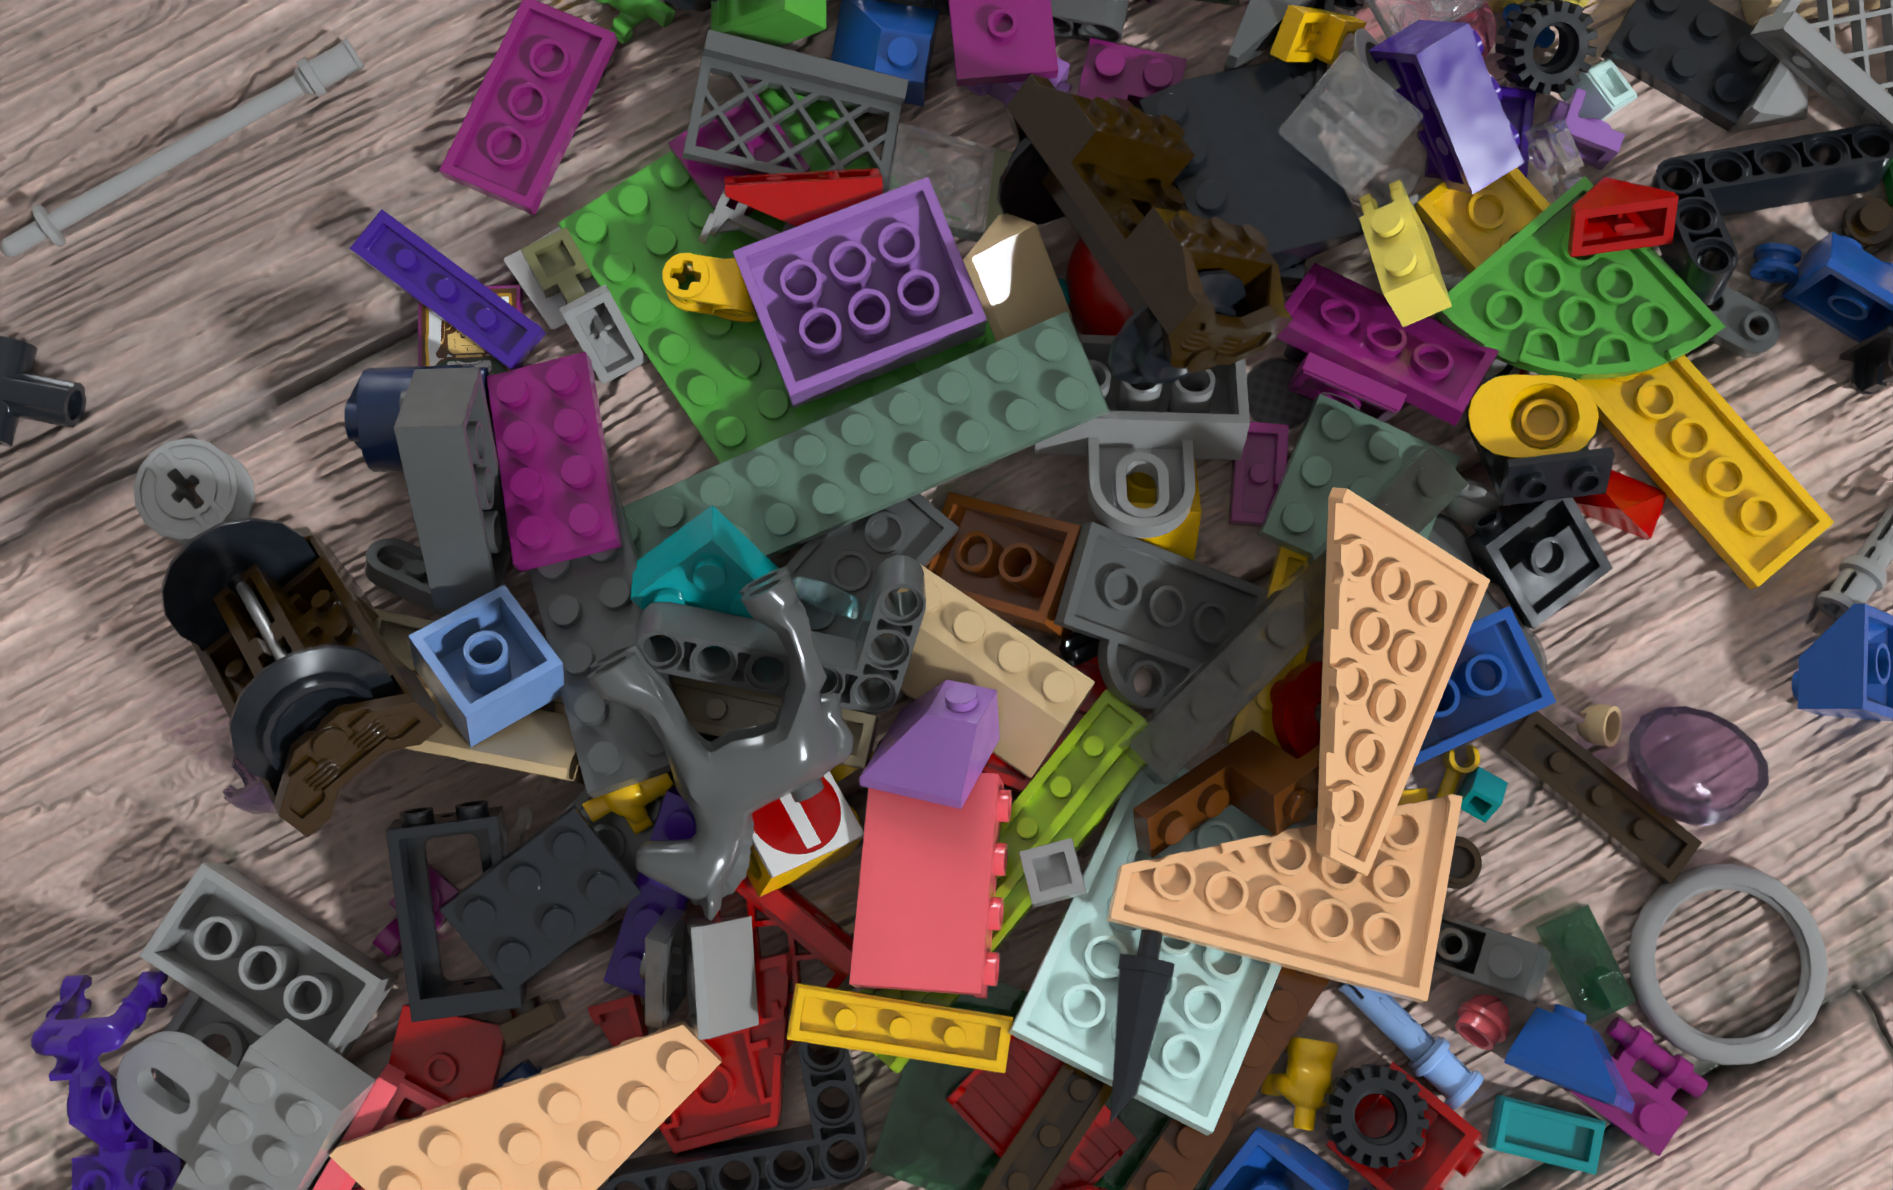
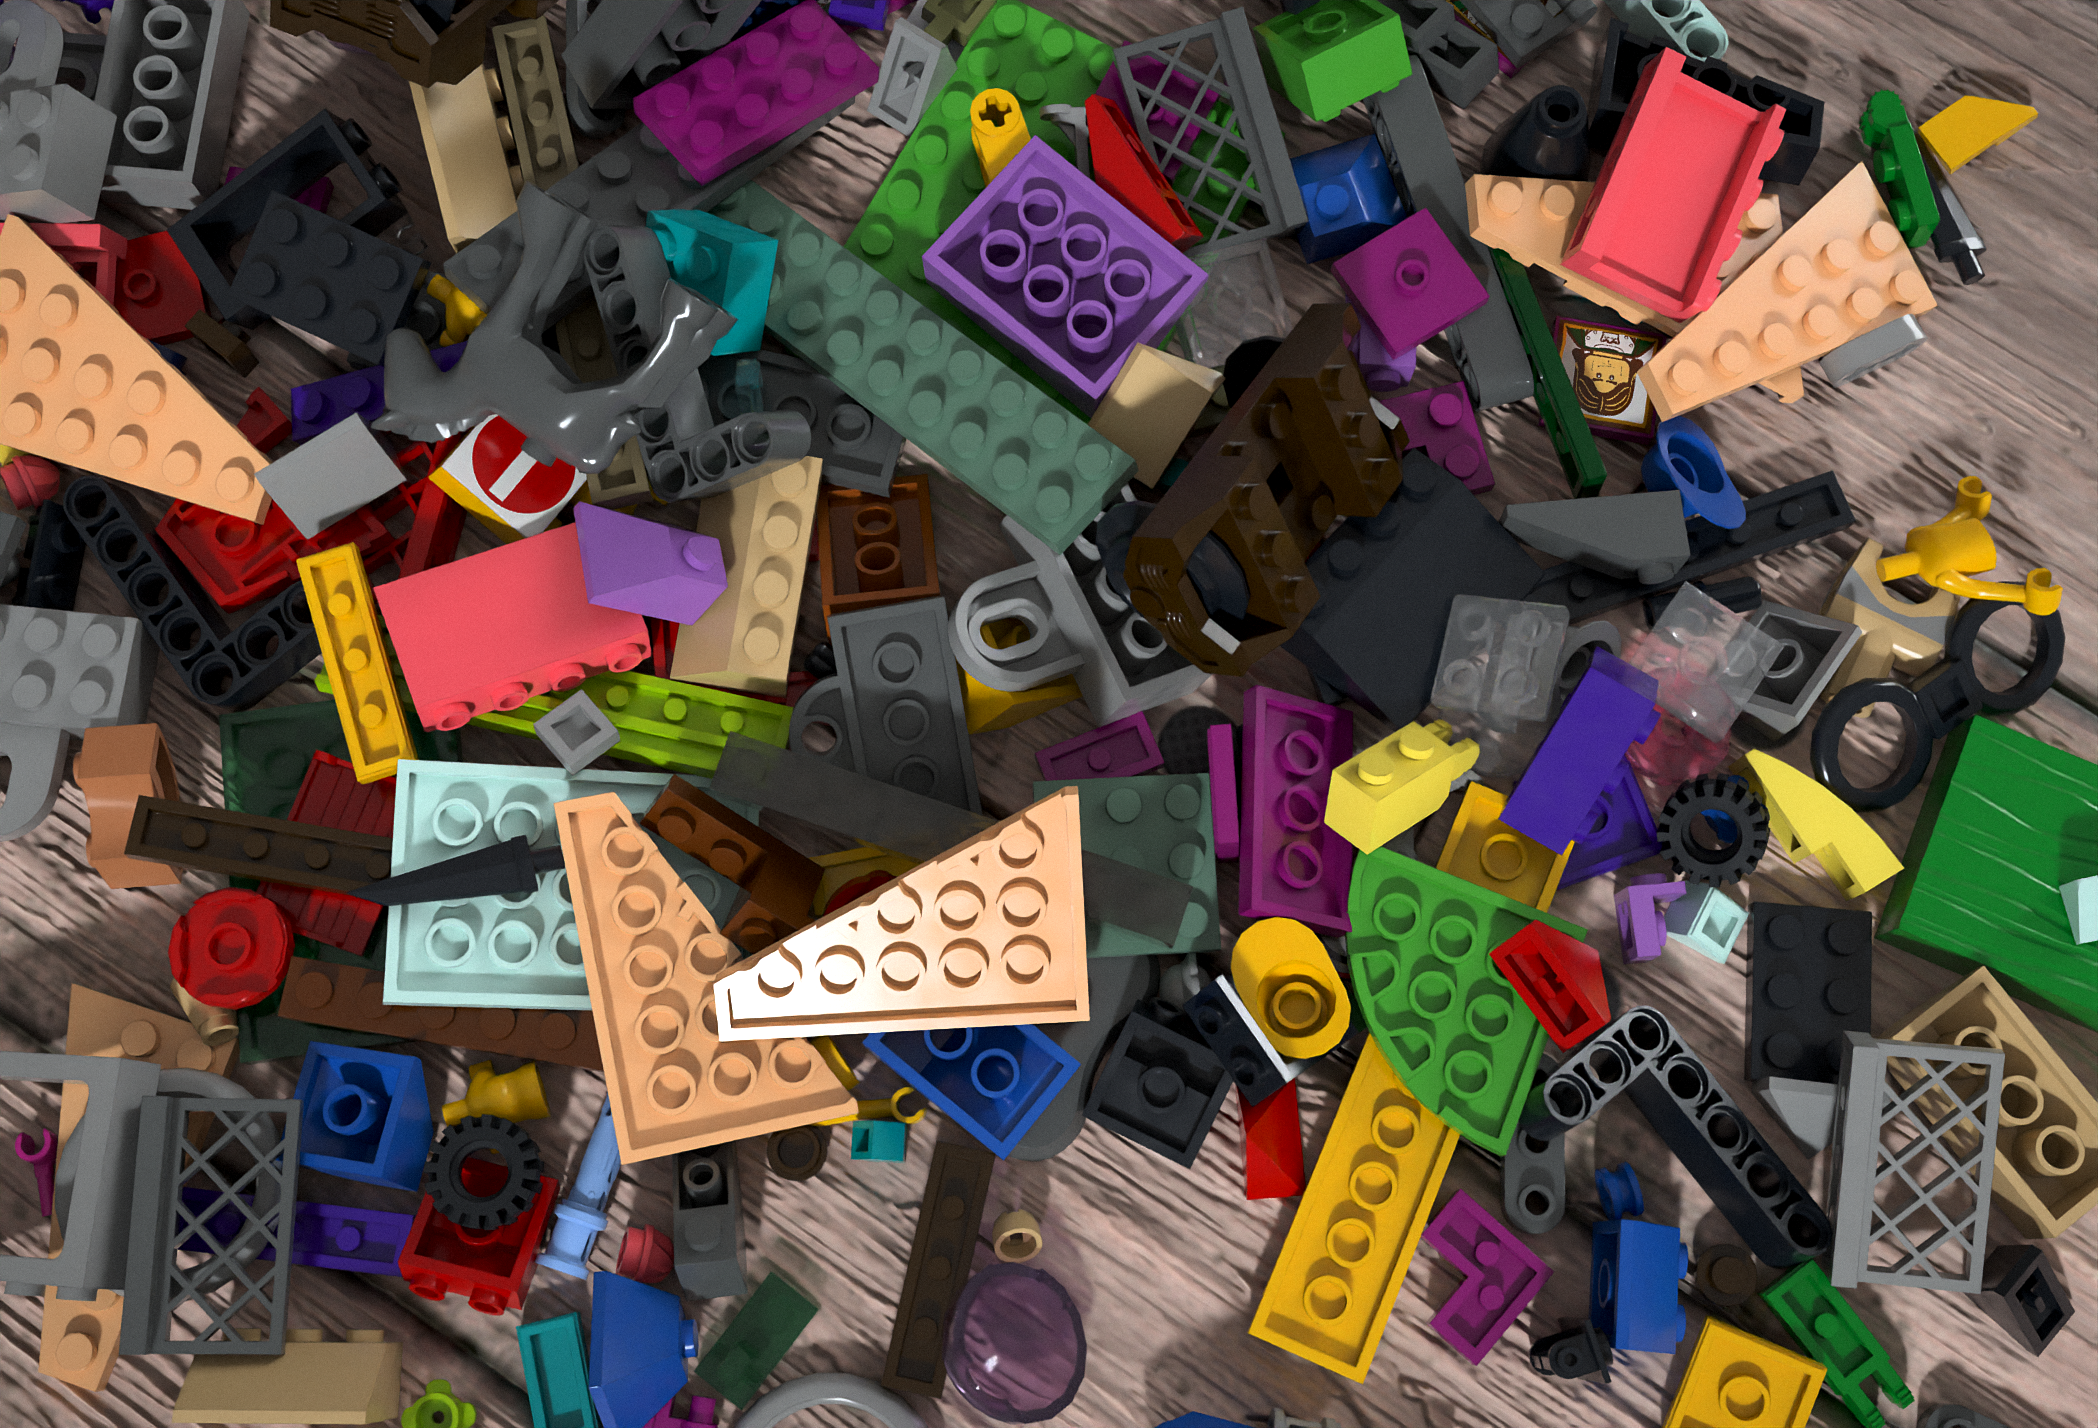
camera: 65 degrees right, 5 degrees down
(487, 665) = (522, 116): medium blue brick -> none
(665, 967) = (315, 415): flat silver plate -> none
(1313, 34) = (1583, 582): yellow slope -> none
(1555, 154) = (1601, 894): clear plate -> none
(1800, 387) = (1497, 1275): none -> magenta plate

